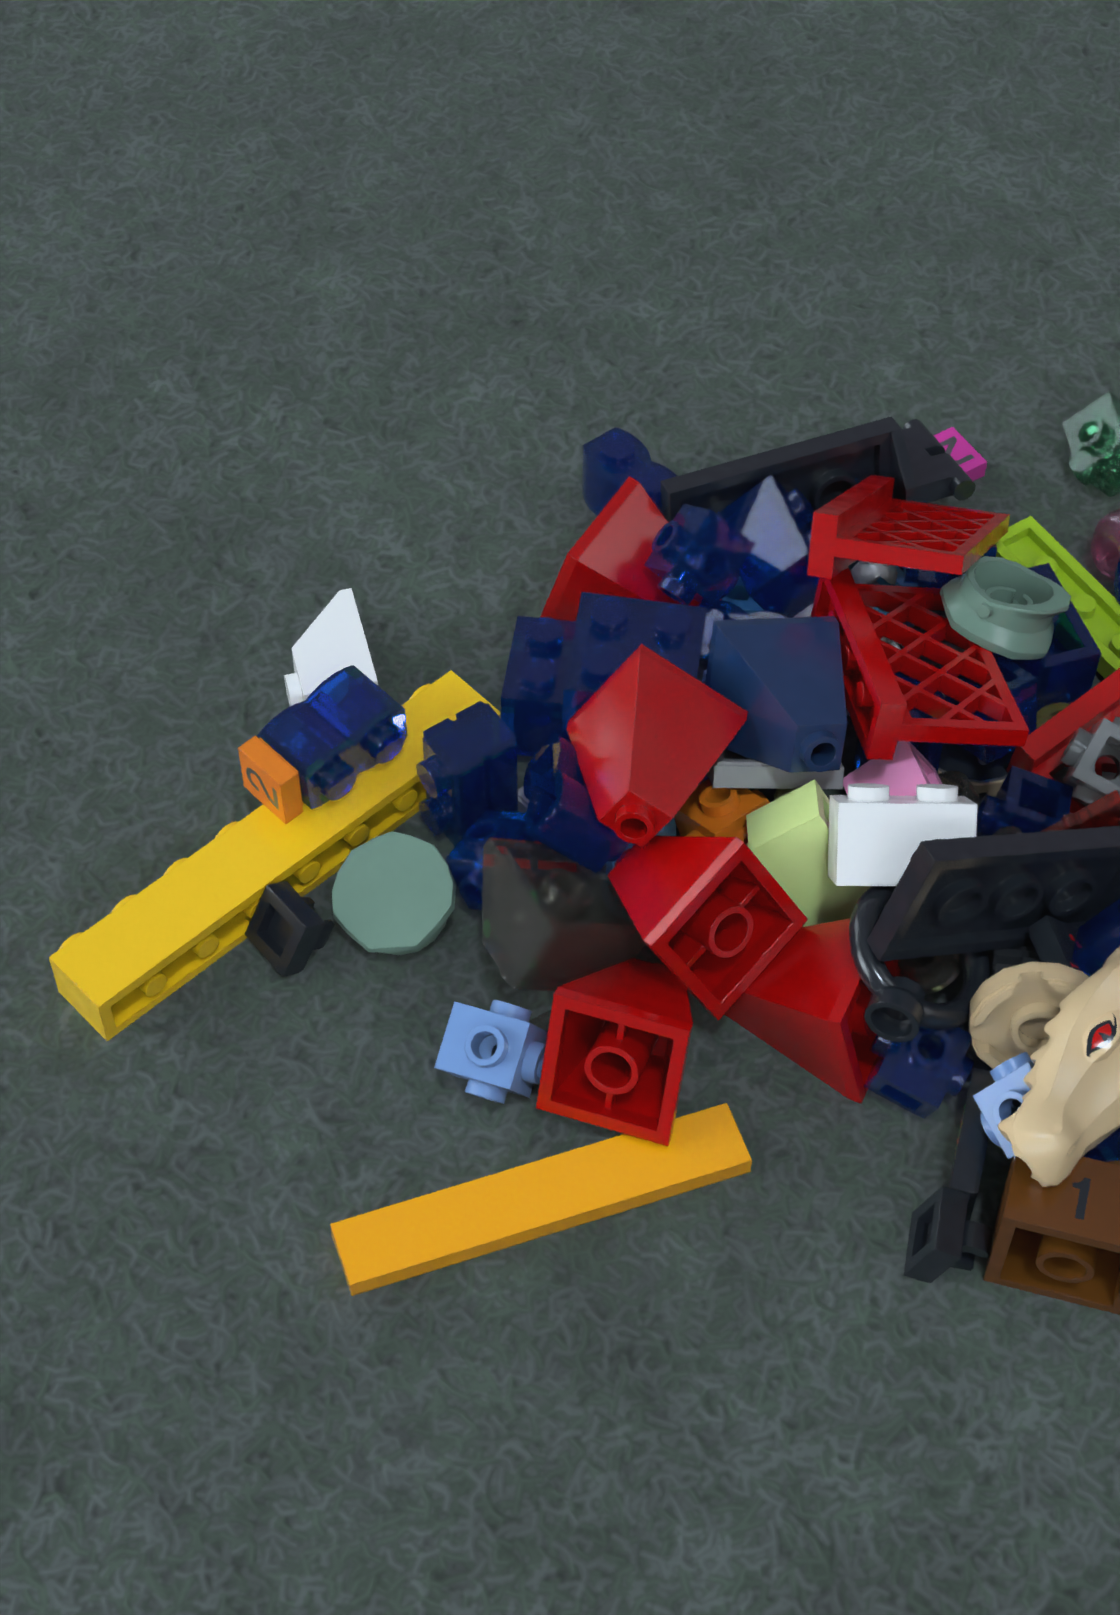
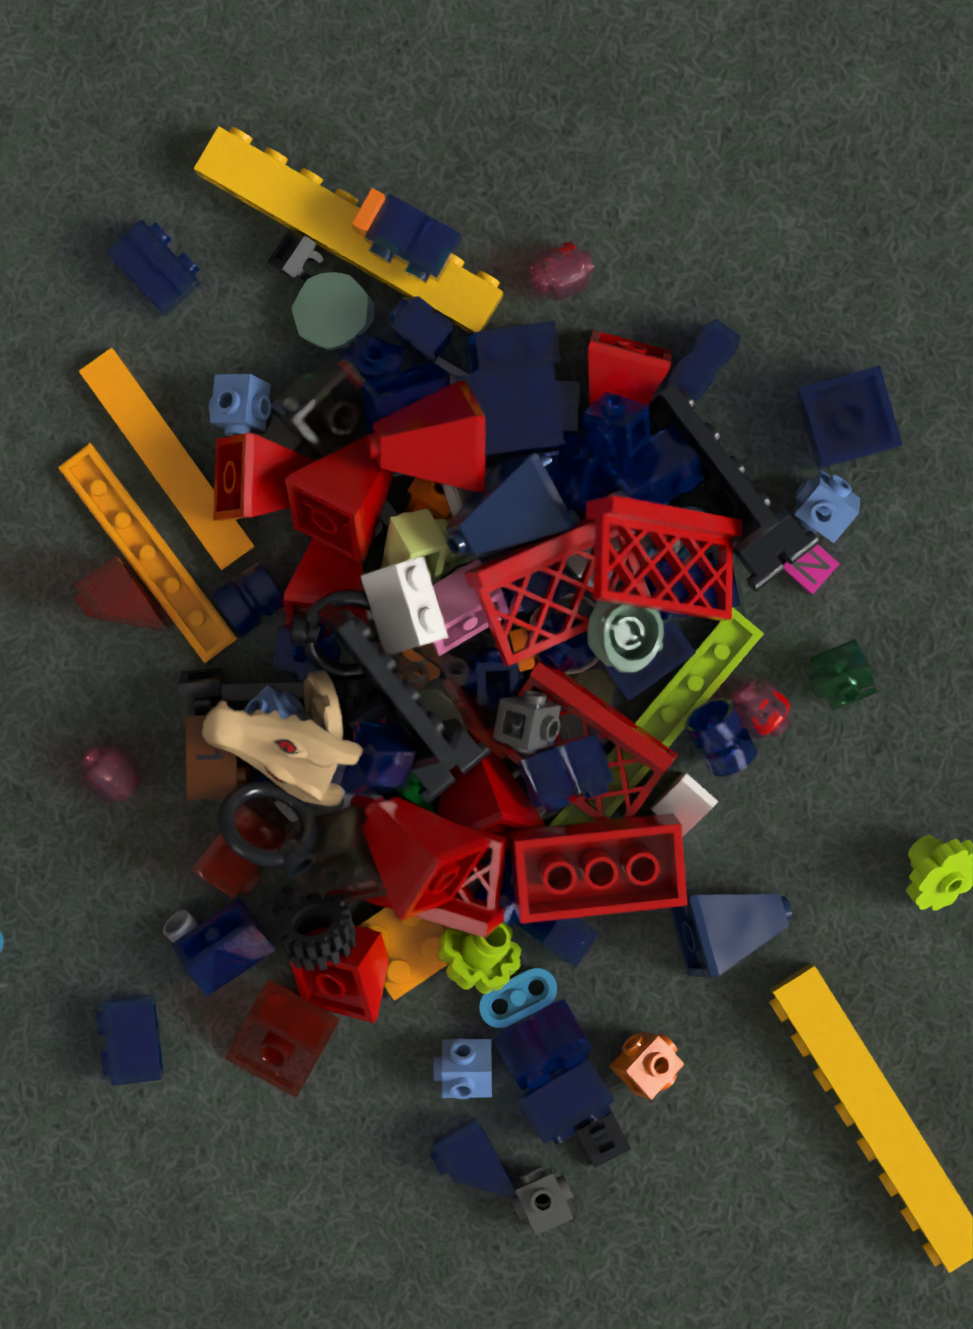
camera: 75 degrees right, 35 degrees up
(227, 1122) = (154, 267): none -> clear blue brick
(328, 646) = (498, 213): white slope -> none
(447, 615) = (561, 271): none -> clear pink head
(686, 1271) = (147, 553): none -> light orange tile
(760, 1298) = (118, 597): none -> clear red slope
(763, 362) = (849, 418): none -> clear blue brick
(817, 1127) = (249, 599): none -> clear blue wheel
(872, 398) = (826, 505): none -> medium blue brick
(989, 767) = (519, 640): none -> orange tile
(1064, 1420) = (109, 773): none -> clear pink head

